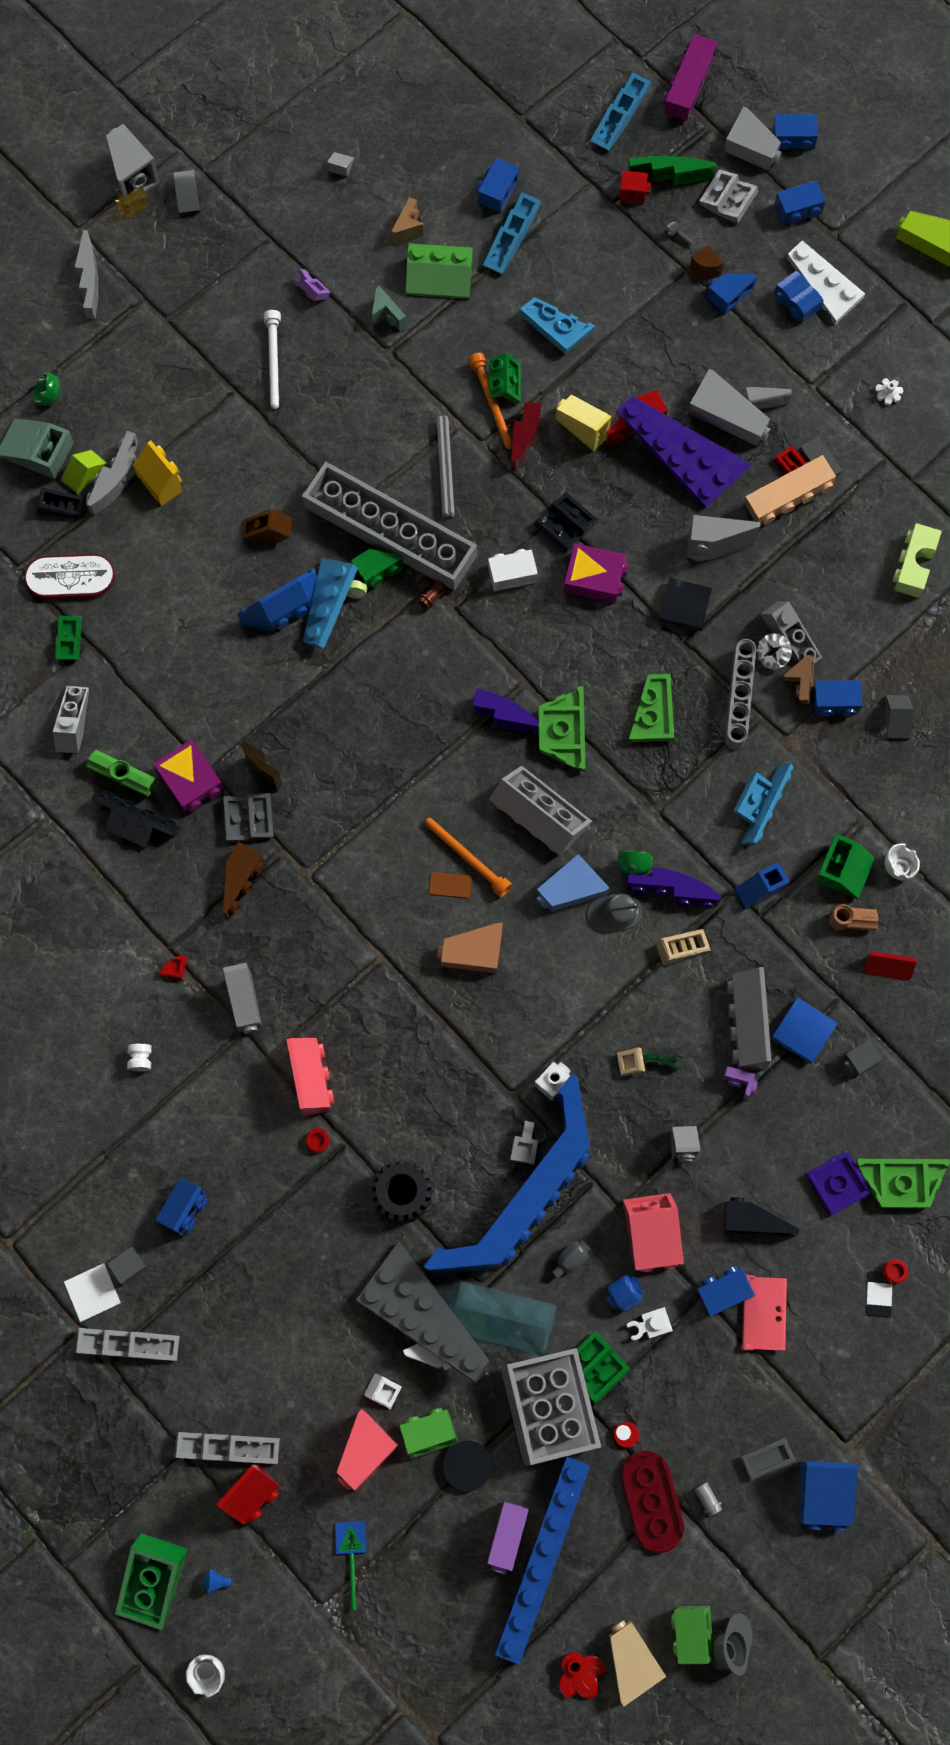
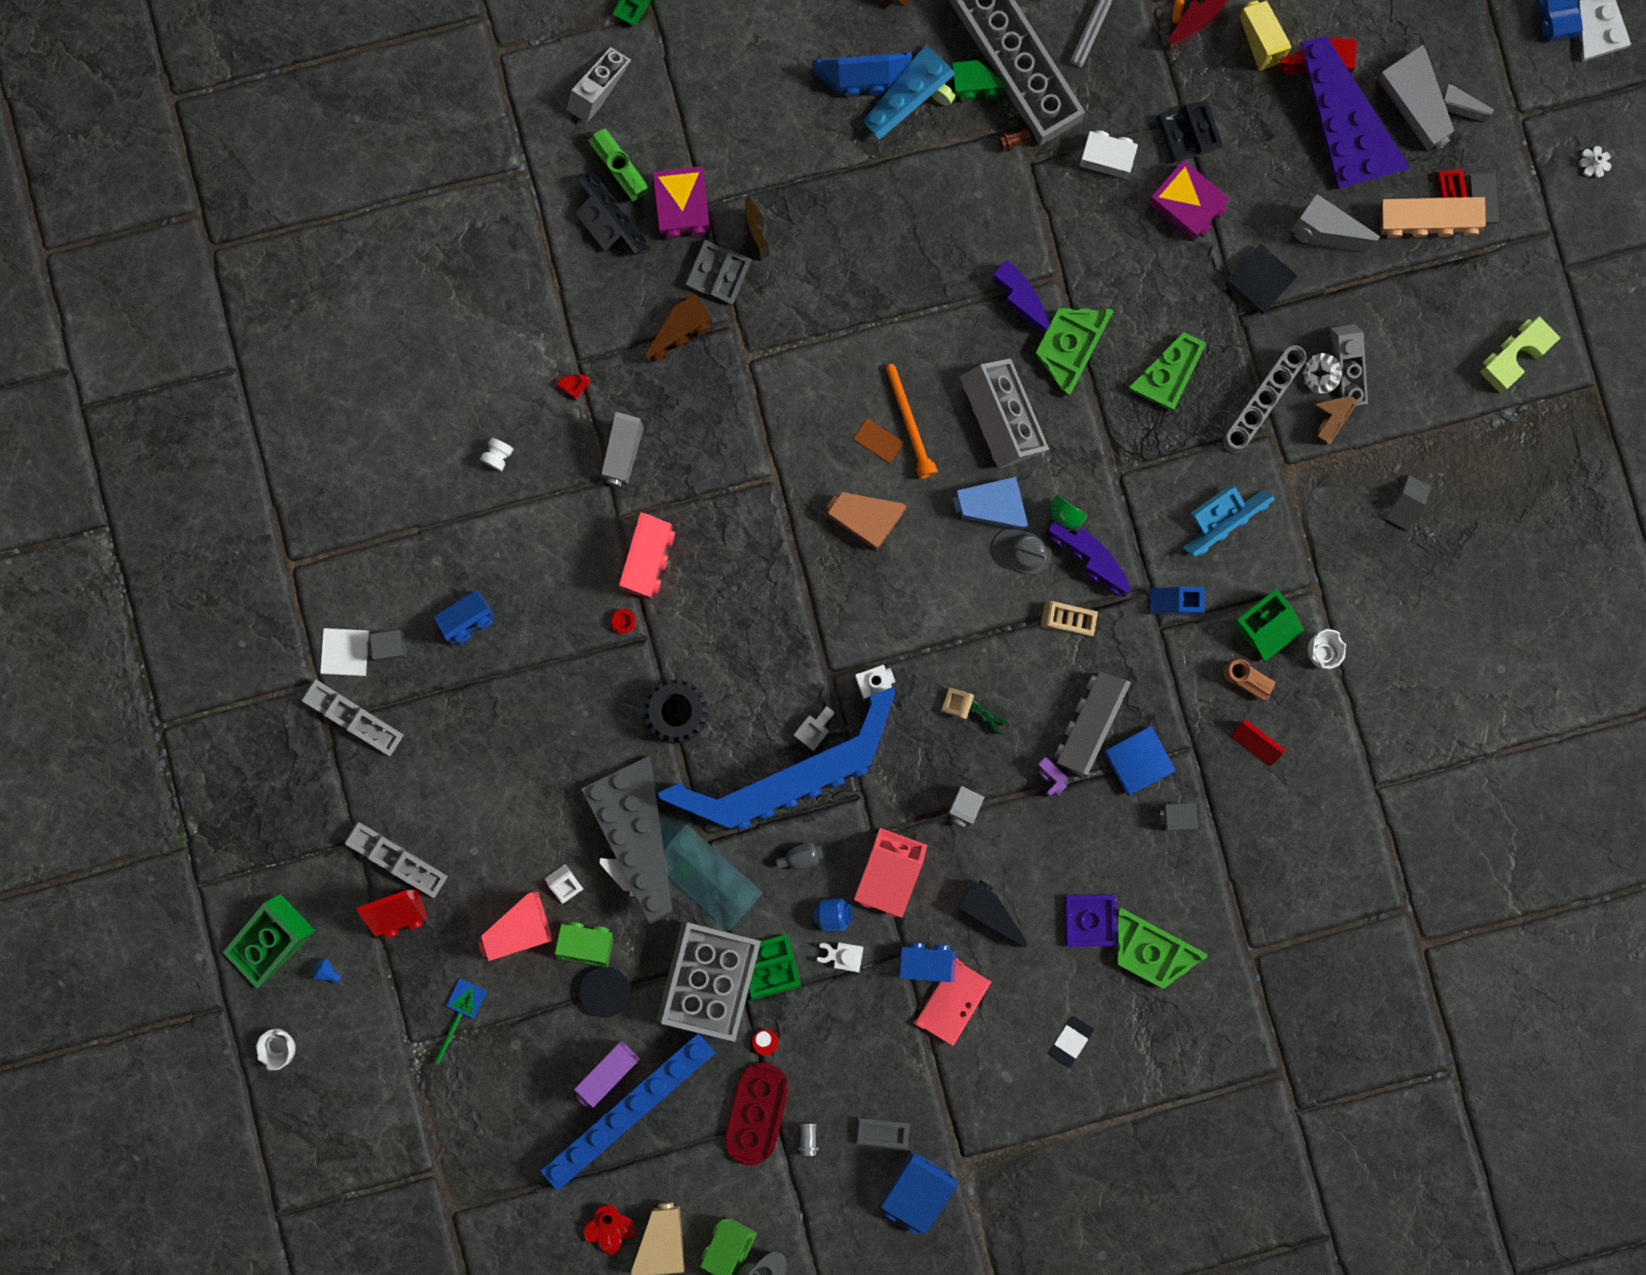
camera: 25 degrees right, 10 degrees up
(837, 697) = (1357, 453): blue brick -> none
(895, 1271) = (1097, 1029): red tile -> none

